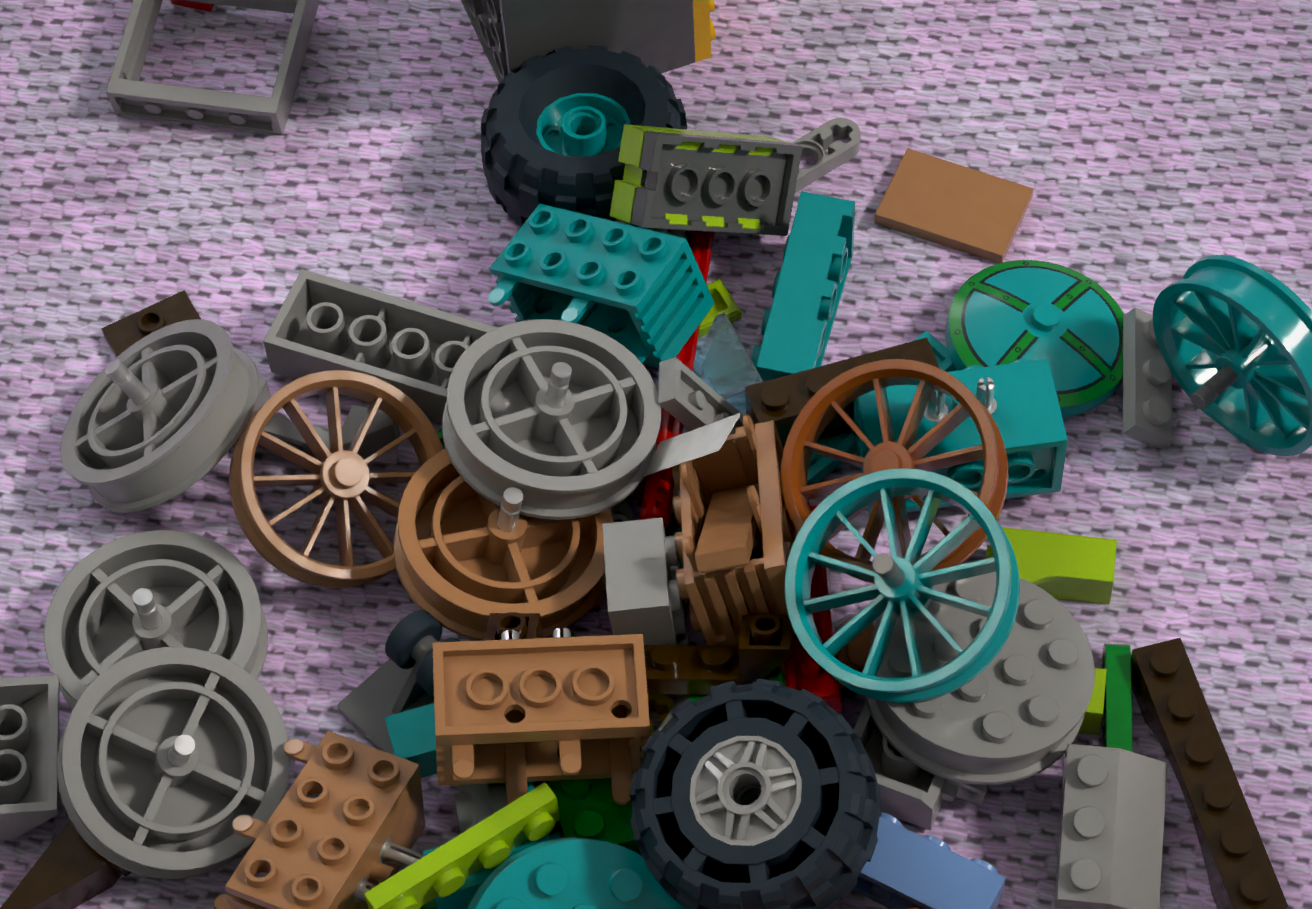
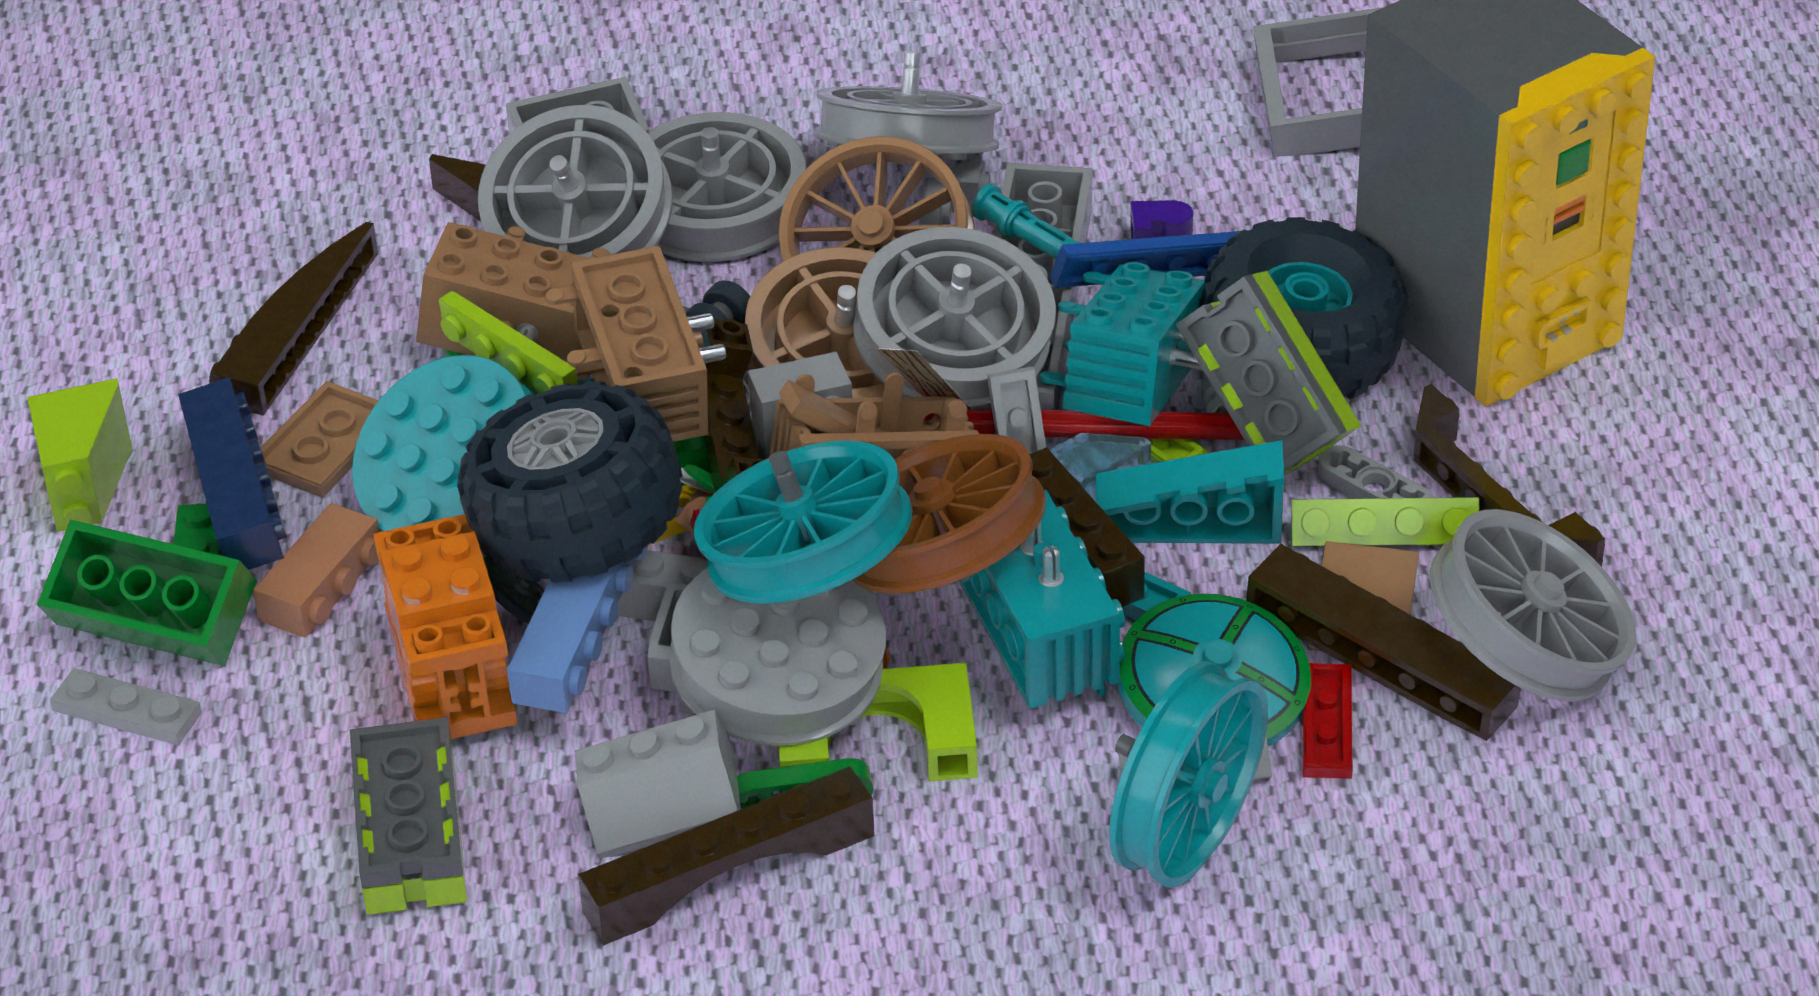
camera: 75 degrees right, 15 degrees down
(134, 327) = (1031, 127): dark brown plate -> none
(371, 246) = (1160, 219): none -> dark purple leg
(381, 344) = (1017, 220): none -> teal pin
(465, 235) = (1161, 254): none -> blue tile
(740, 94) = (1463, 477): none -> dark brown slope
(868, 154) = (1379, 520): none -> lime plate
(1033, 197) = (1382, 642): none -> dark brown brick
(1049, 67) = (1559, 609): none -> light grey wheel
(1111, 268) = (1328, 723): none -> red tile

